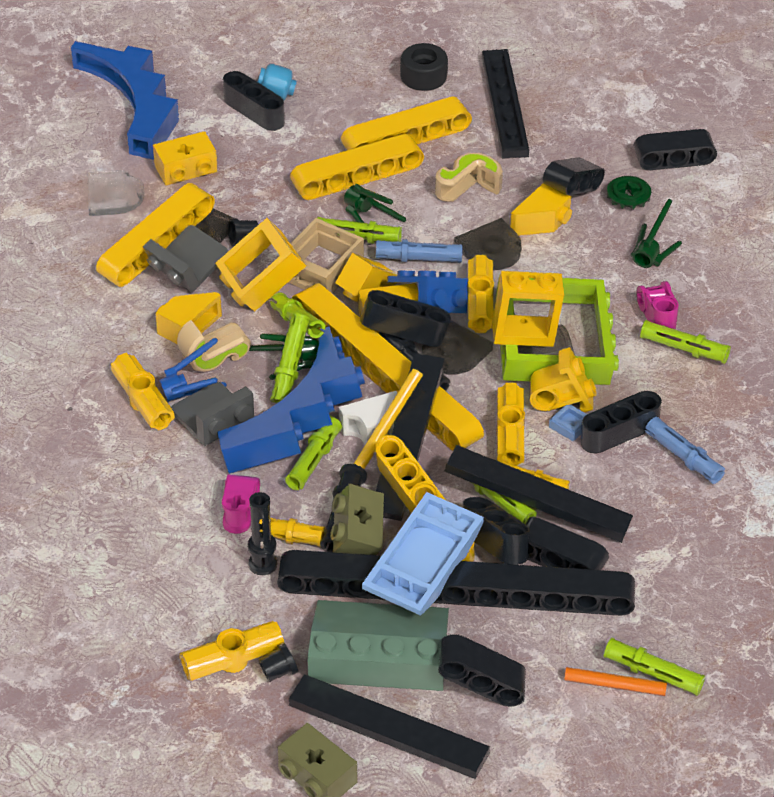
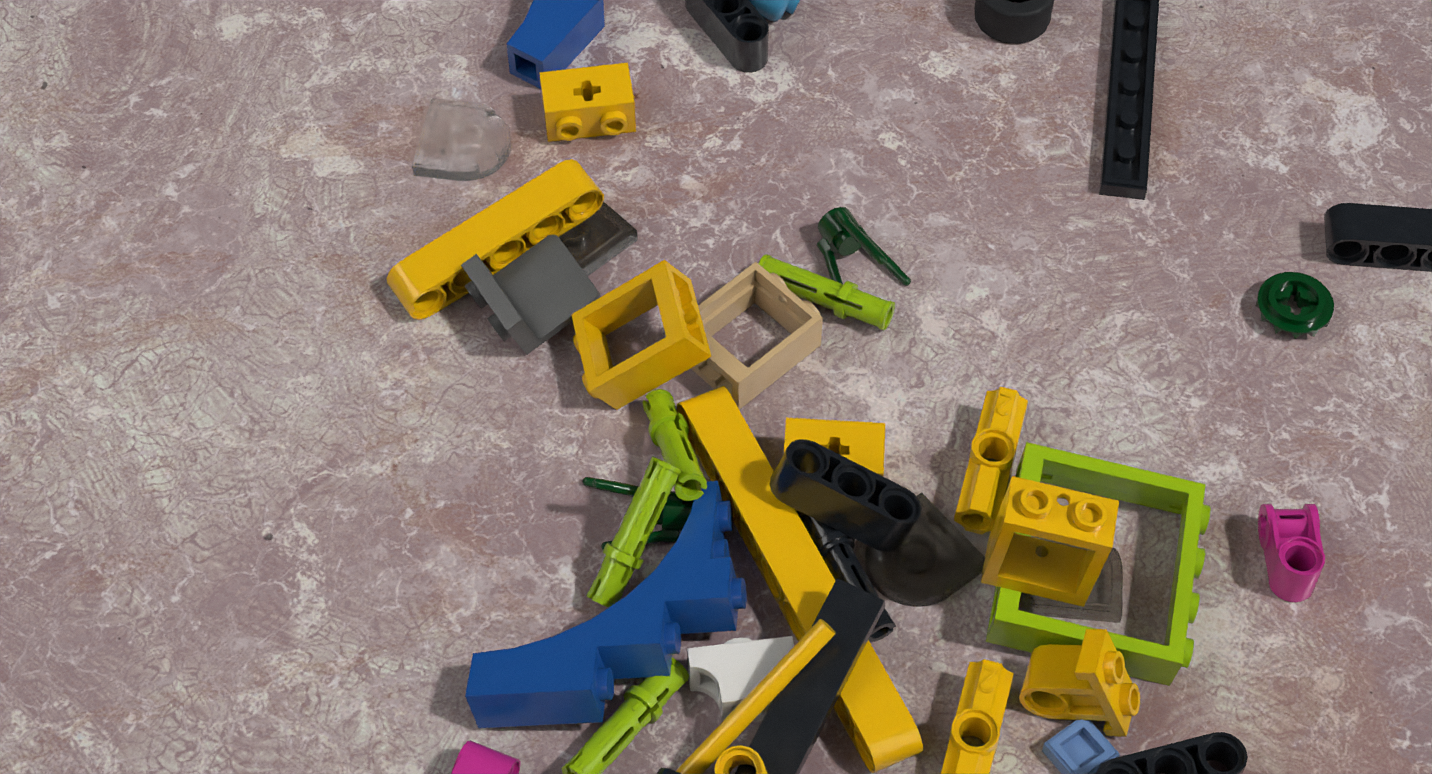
camera: 15 degrees right, 10 degrees up
(142, 391) = (387, 558): yellow piece -> none
(176, 385) = (442, 539): blue plant -> none
(200, 308) = (501, 405): yellow slope -> none
(214, 410) = (486, 600): dark grey bracket -> none
(230, 343) = (523, 475): tan animal -> none
(239, 229) = (636, 255): black piece -> none
(356, 166) = (855, 169): yellow beam -> none
(363, 274) = (811, 387): yellow slope -> none
(418, 251) = (912, 352): medium blue pin -> none
(421, 123) = (954, 112): yellow beam -> none
(442, 291) = (917, 444): blue bracket -> none
(465, 173) = (1031, 213): tan animal -> none
(495, 241) = (1037, 360): clear smoke tile -> none
(541, 212) = (1136, 317): yellow slope -> none
(573, 176) = (1205, 262): black beam -> none
(648, 250) = (1298, 432): dark green plant -> none
(718, 351) = (1339, 643): lime pin -> none

